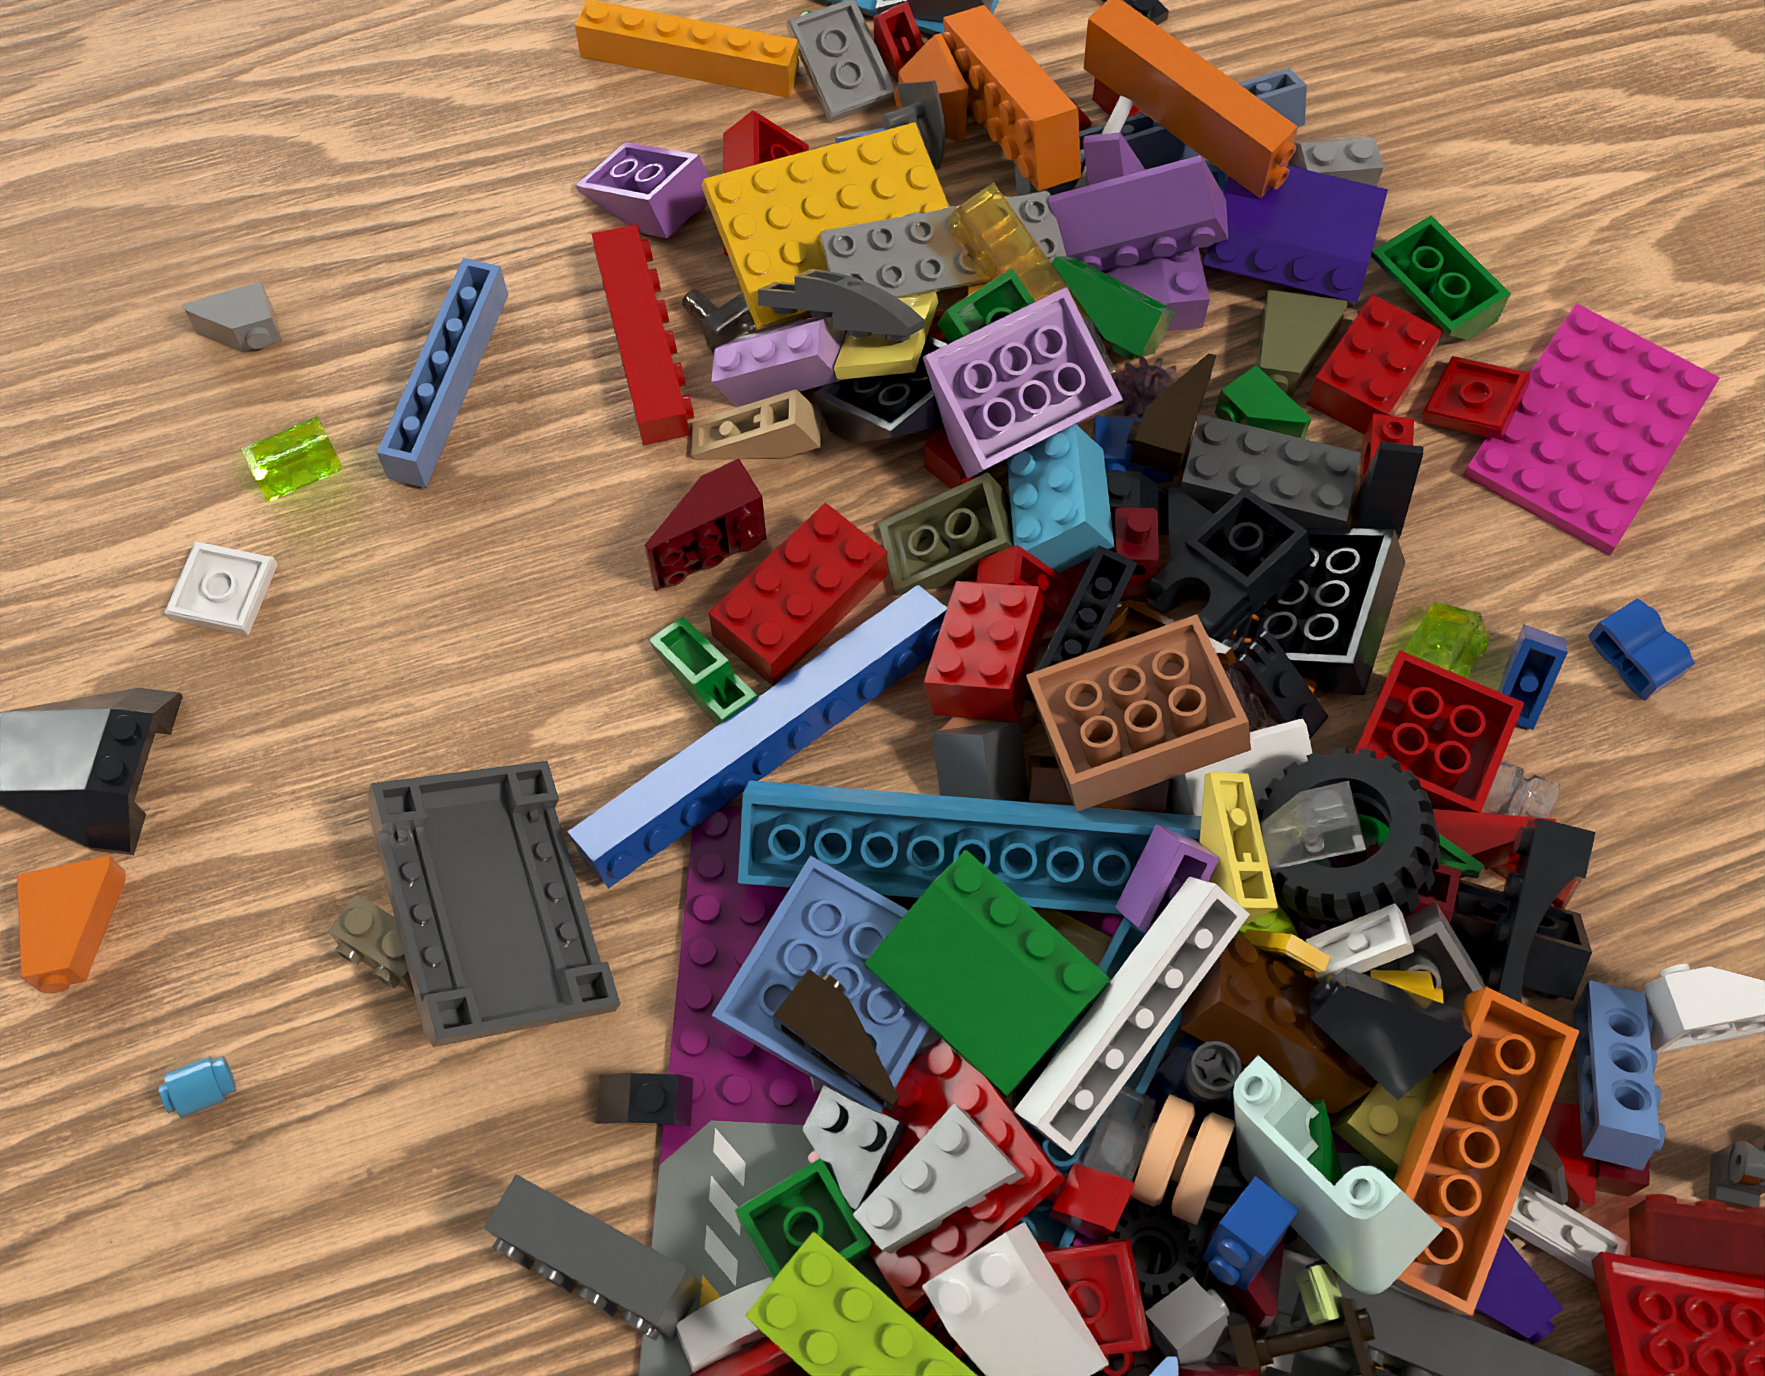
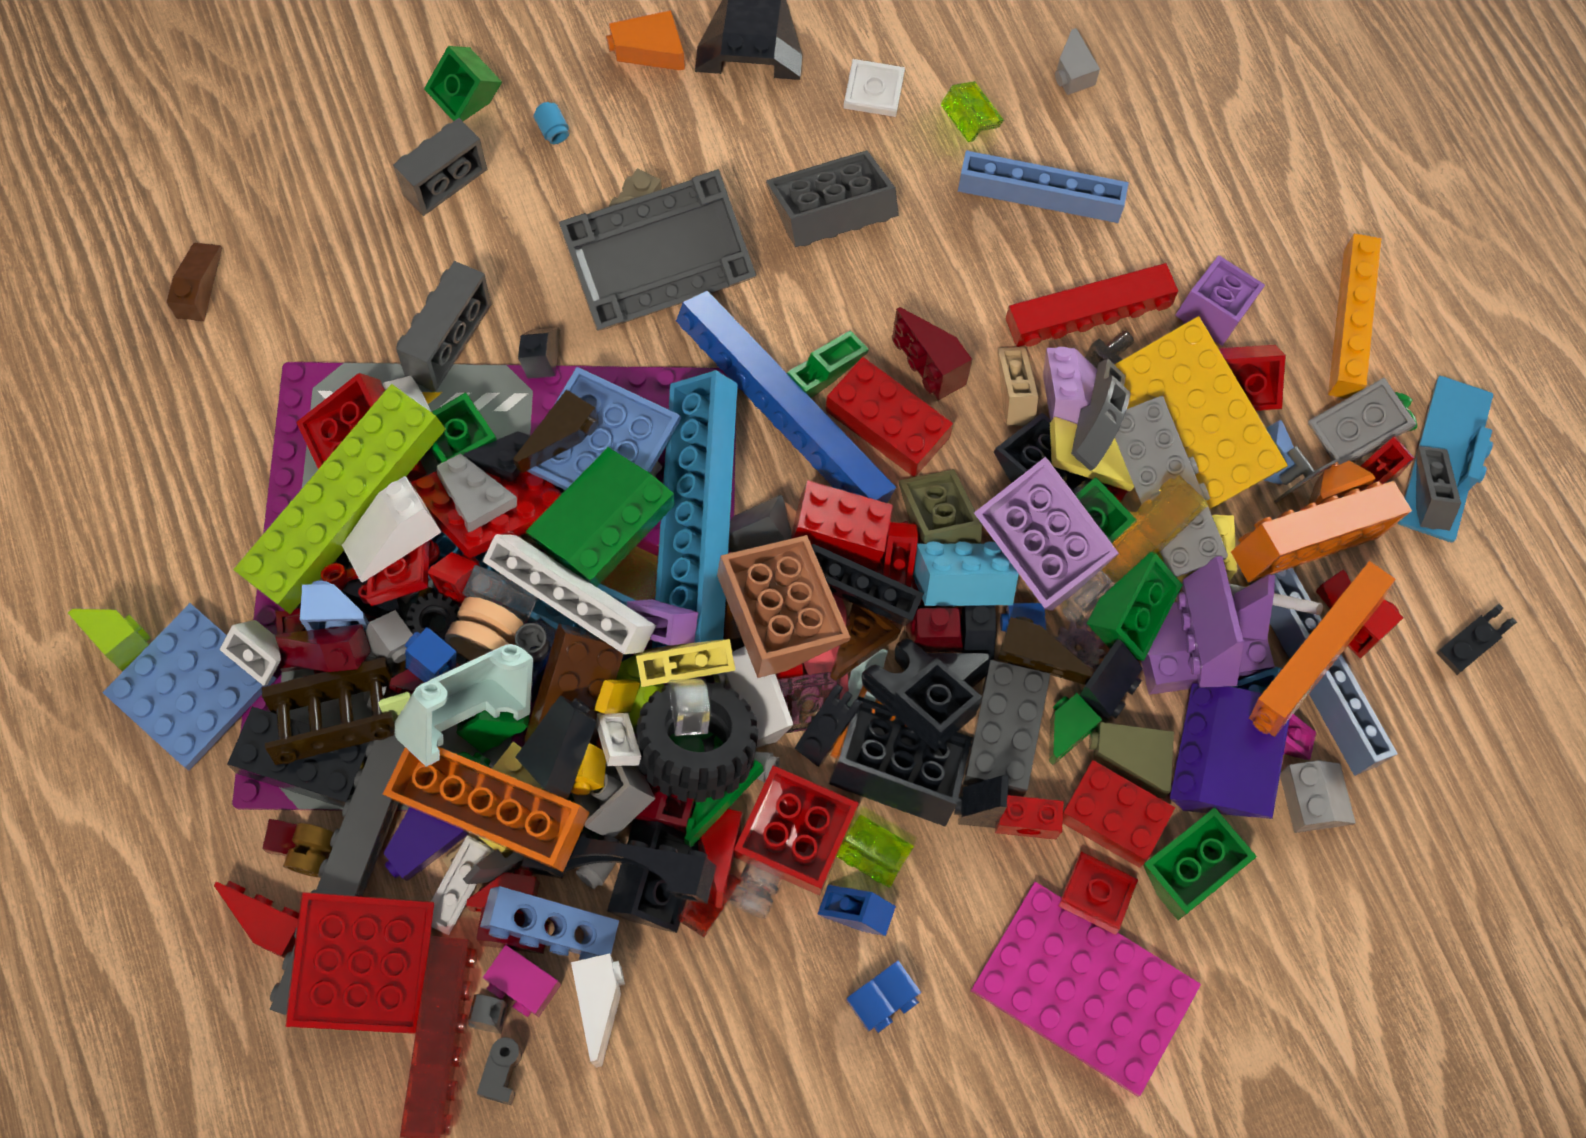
camera: 85 degrees right, 5 degrees up
(85, 1247) = (462, 83): none -> green slope
(263, 1275) = (440, 166): none -> dark grey brick
(414, 652) = (833, 198): none -> dark grey slope
(1186, 342) = (1111, 682): none -> black slope
(1695, 1120) = (521, 982): none -> dark pink brick

